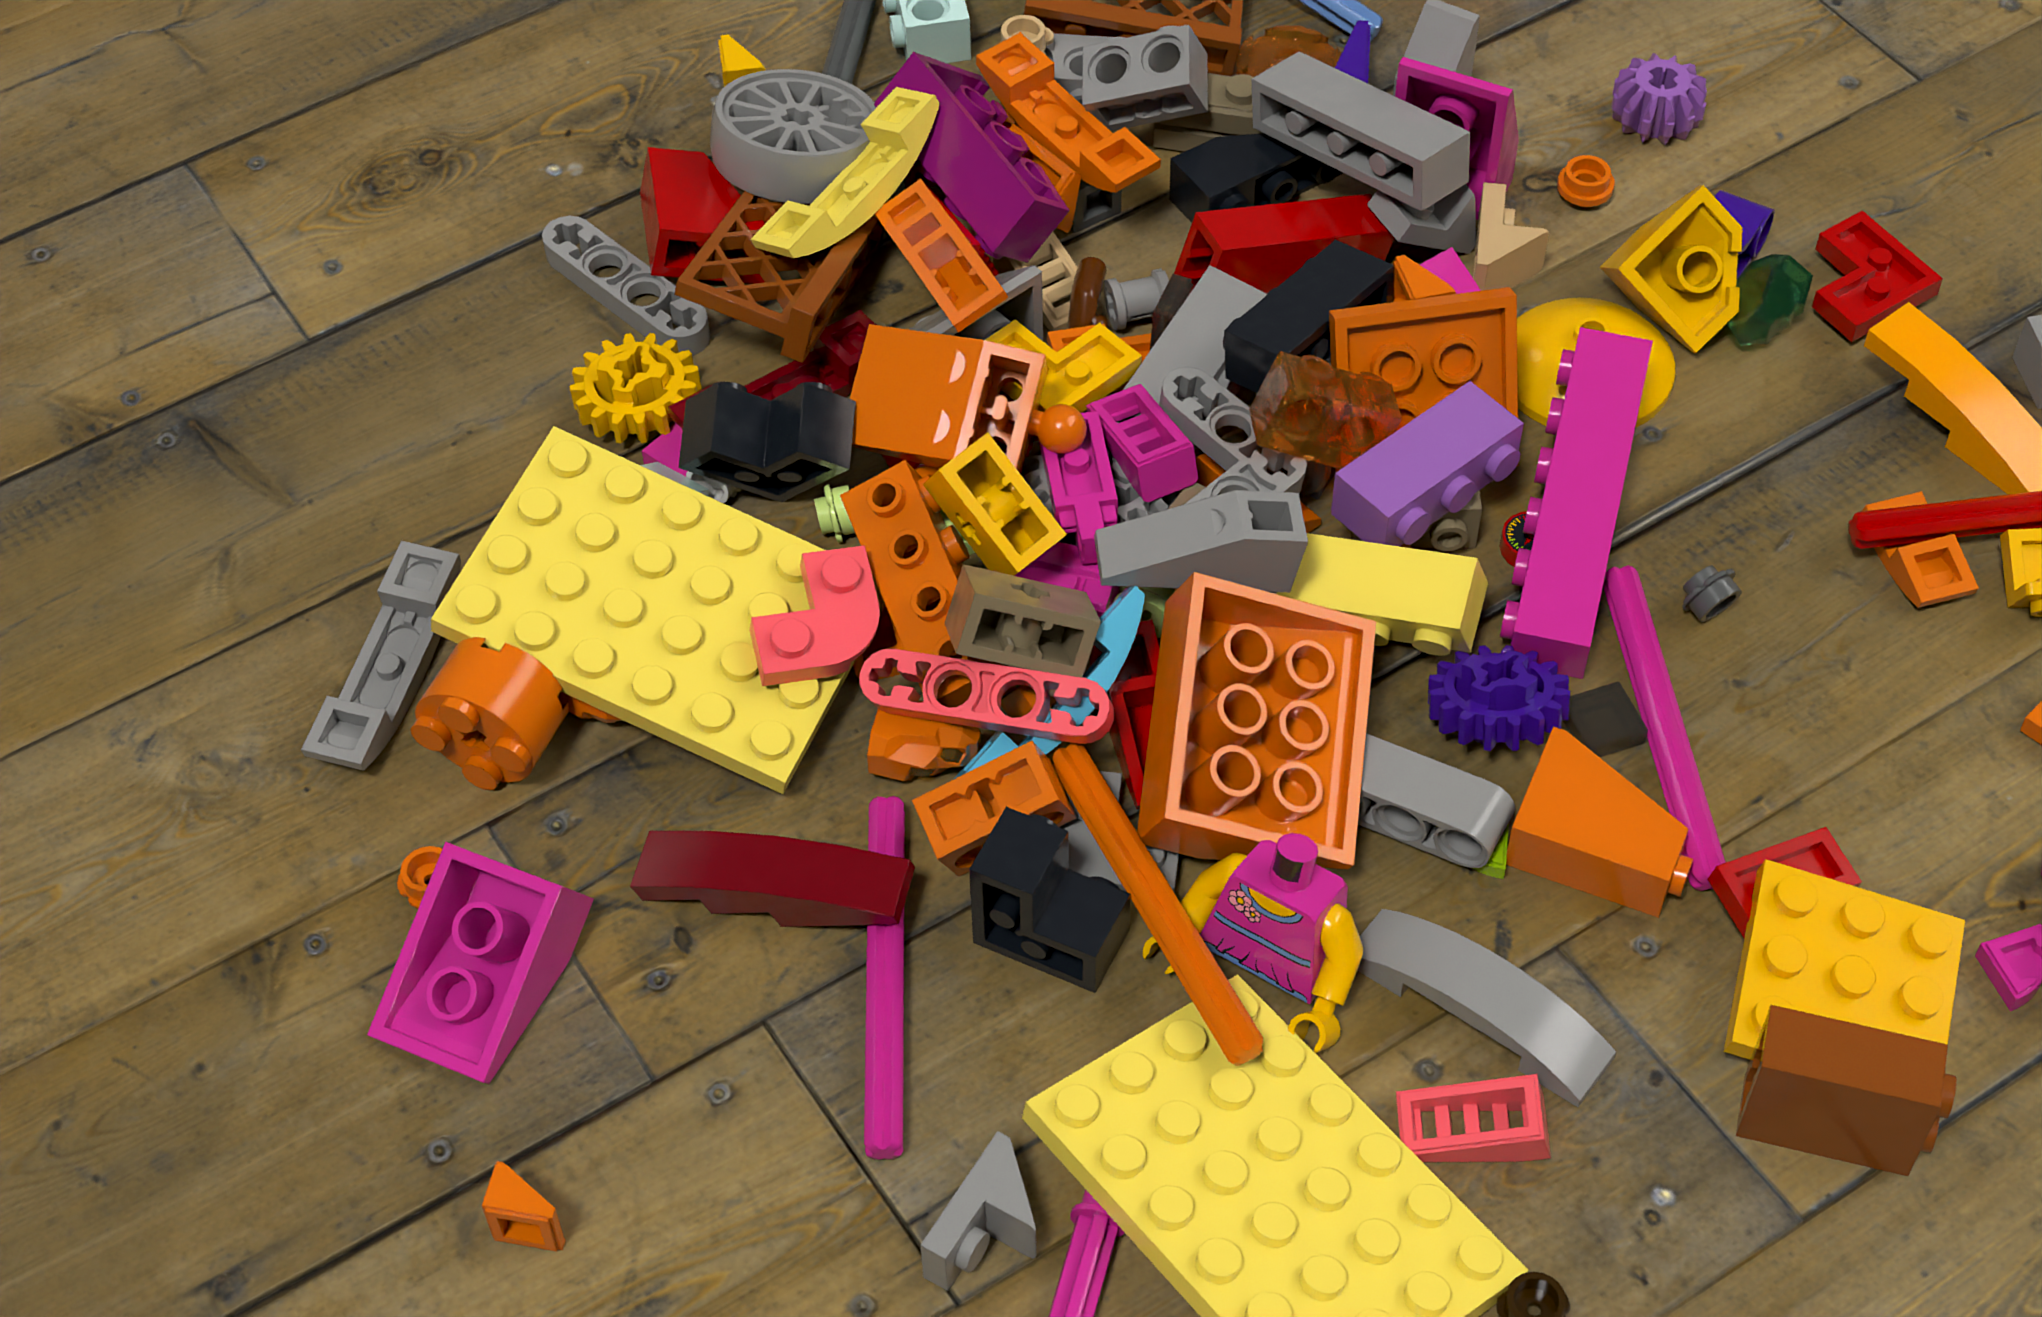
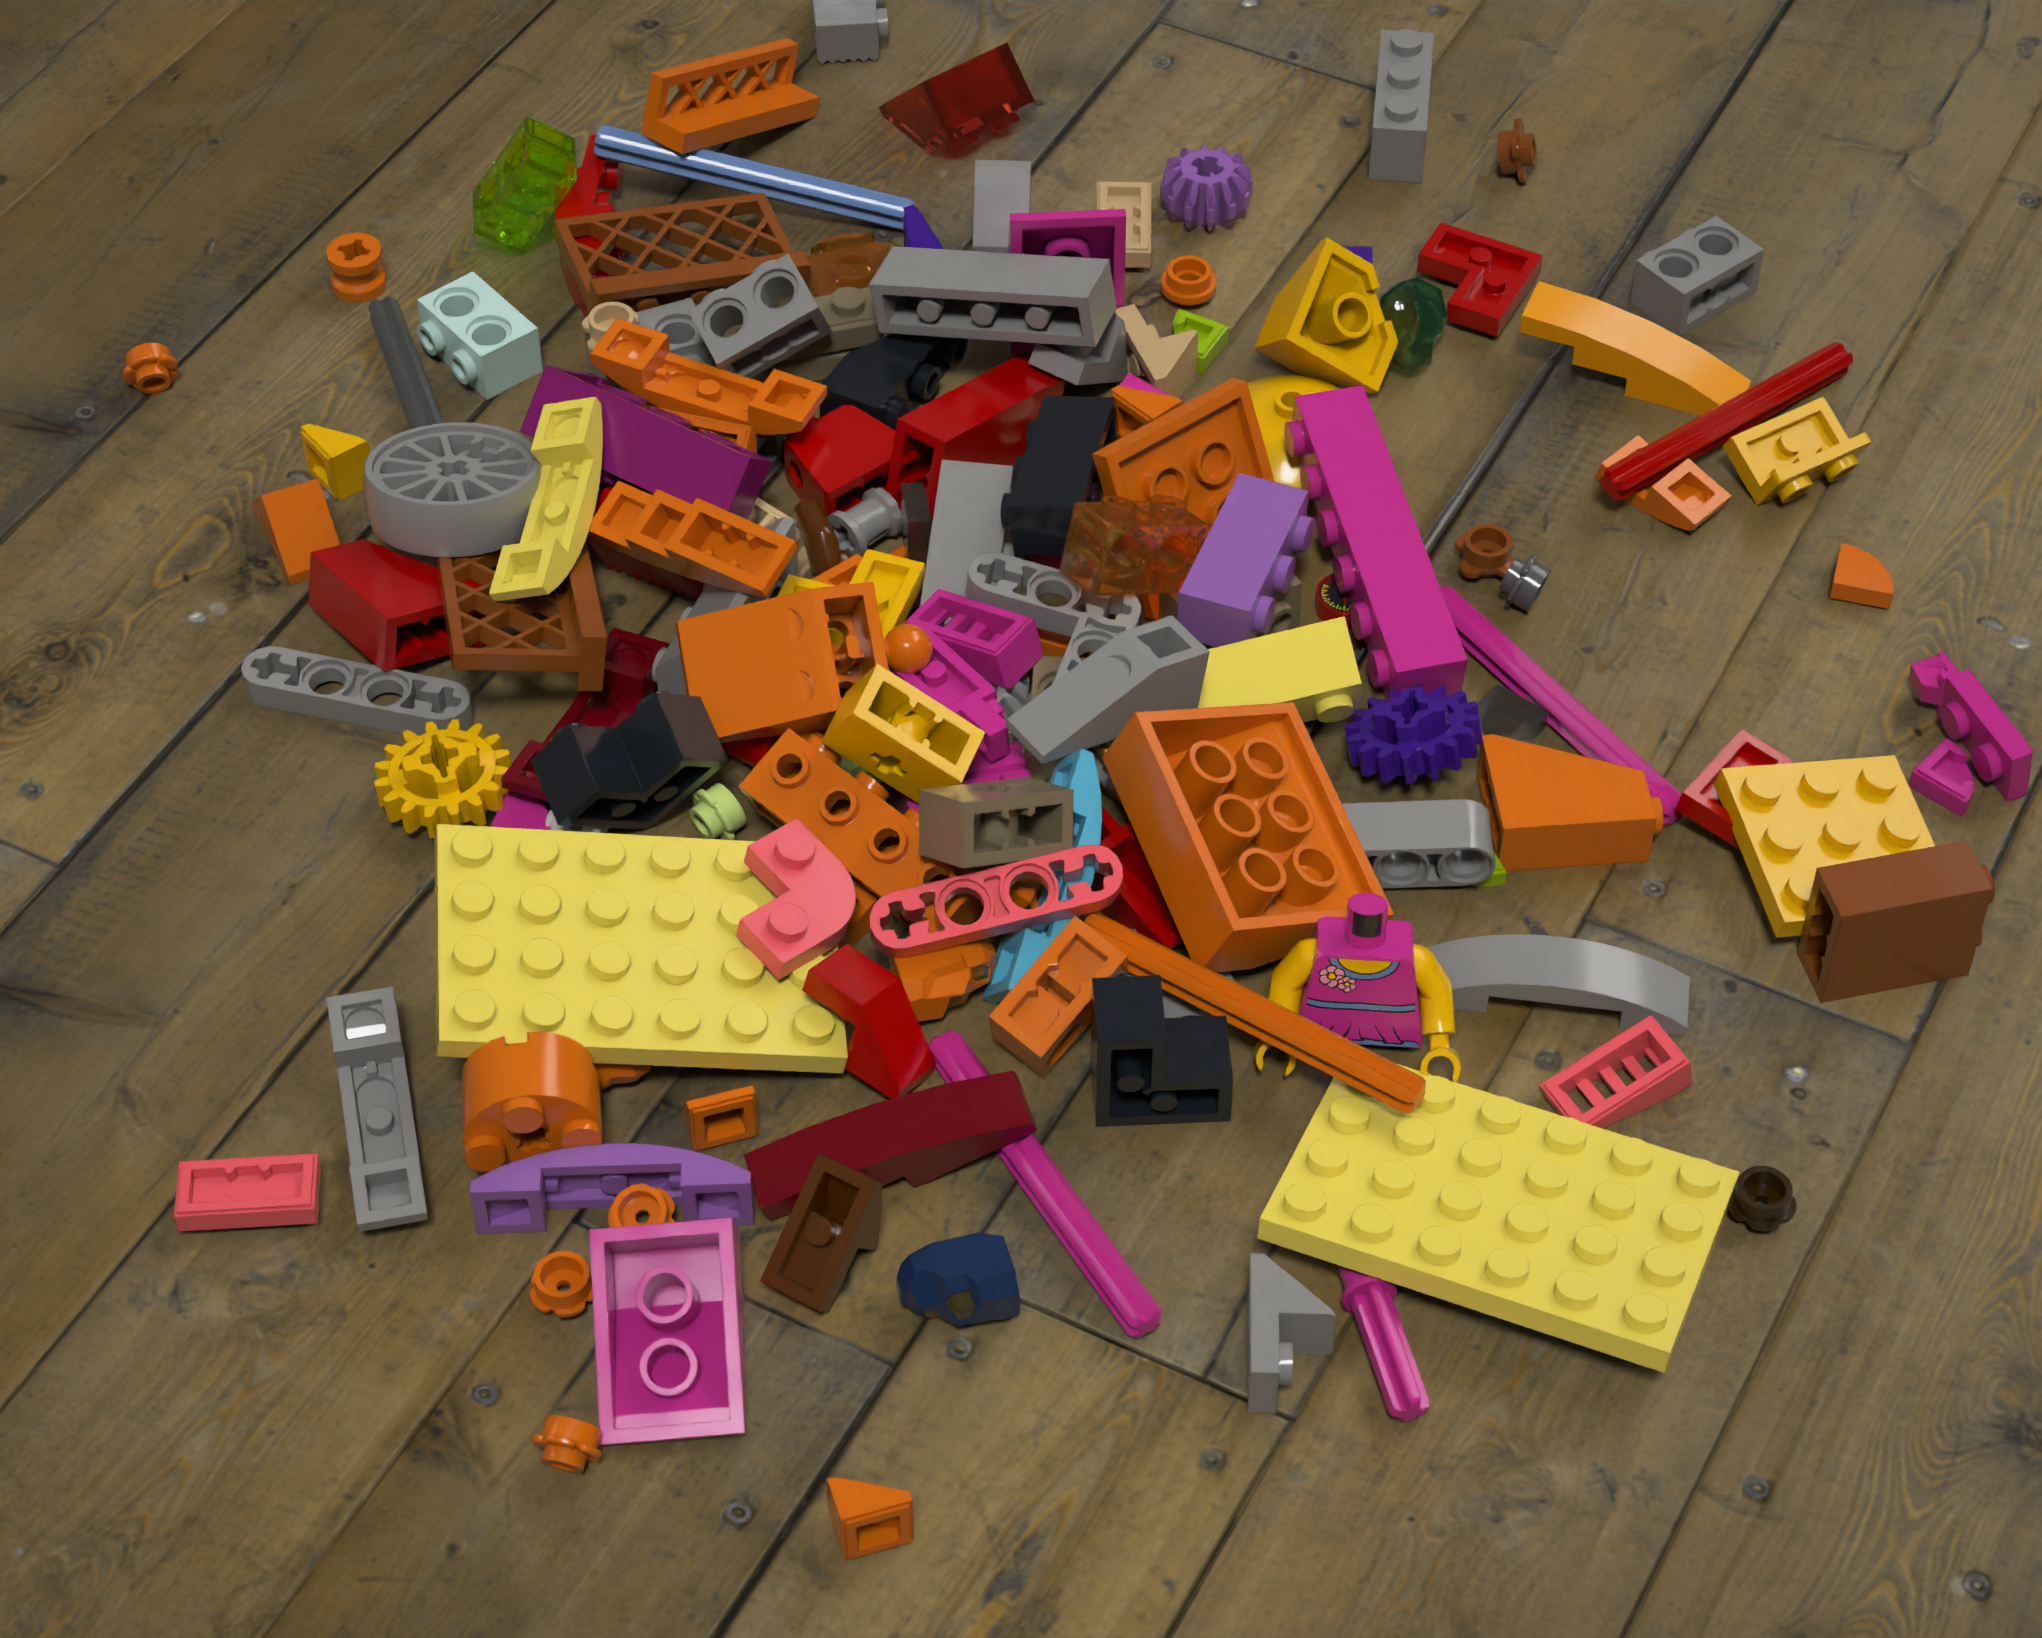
camera: 30 degrees left, 5 degrees down
(247, 682) = (247, 1192): none -> coral plate
(336, 1022) = (568, 1443): none -> orange plate
(456, 781) = (591, 1176): none -> medium lavender slope
(519, 836) = (639, 1199): none -> orange plate
(654, 933) = (827, 1225): none -> reddish brown slope
(655, 789) = (721, 1118): none -> orange slope
(675, 116) = (295, 525): none -> orange slope
(747, 1033) = (961, 1280): none -> dark blue rock
(831, 771) = (887, 1038): none -> red slope
(1148, 227) = (838, 458): none -> red torso
(1561, 106) = (1136, 200): none -> tan plate
(1566, 240) = (1211, 336): none -> lime tile
(1695, 546) = (1485, 551): none -> dark orange plate
(1899, 84) = (1401, 106): none -> light grey brick
(1988, 167) = (1517, 151): none -> dark orange plate

